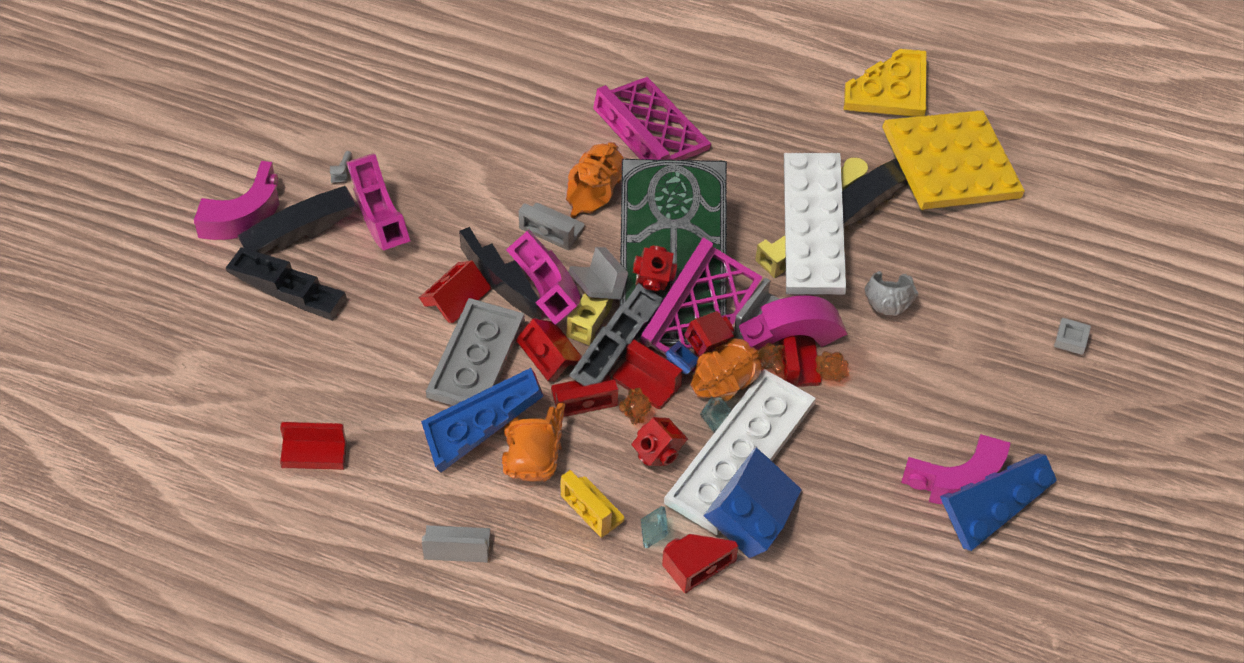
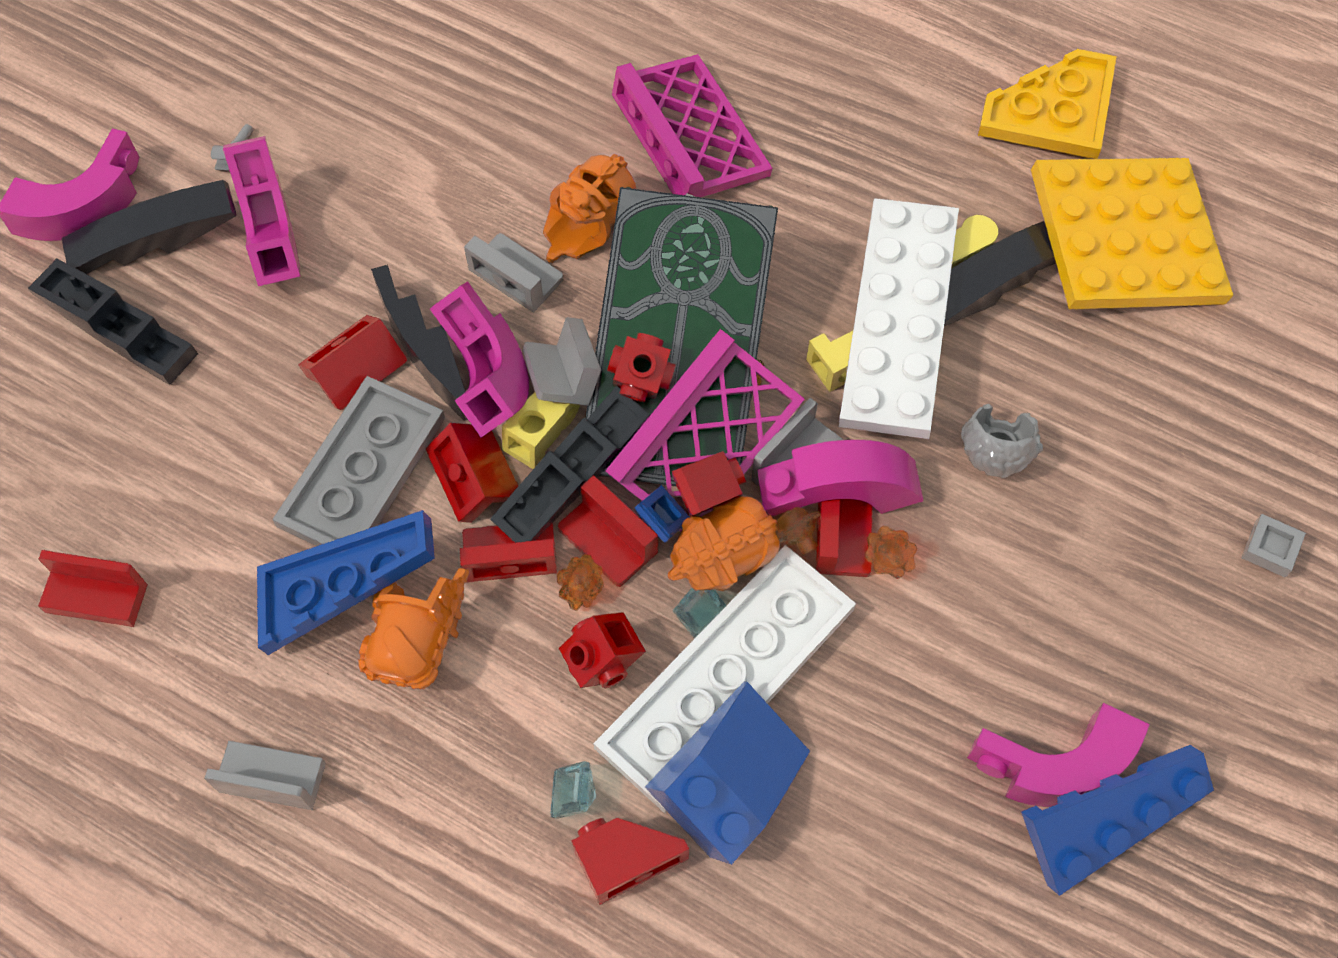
camera: 10 degrees right, 10 degrees up
(590, 503) = (482, 738): yellow bracket -> none

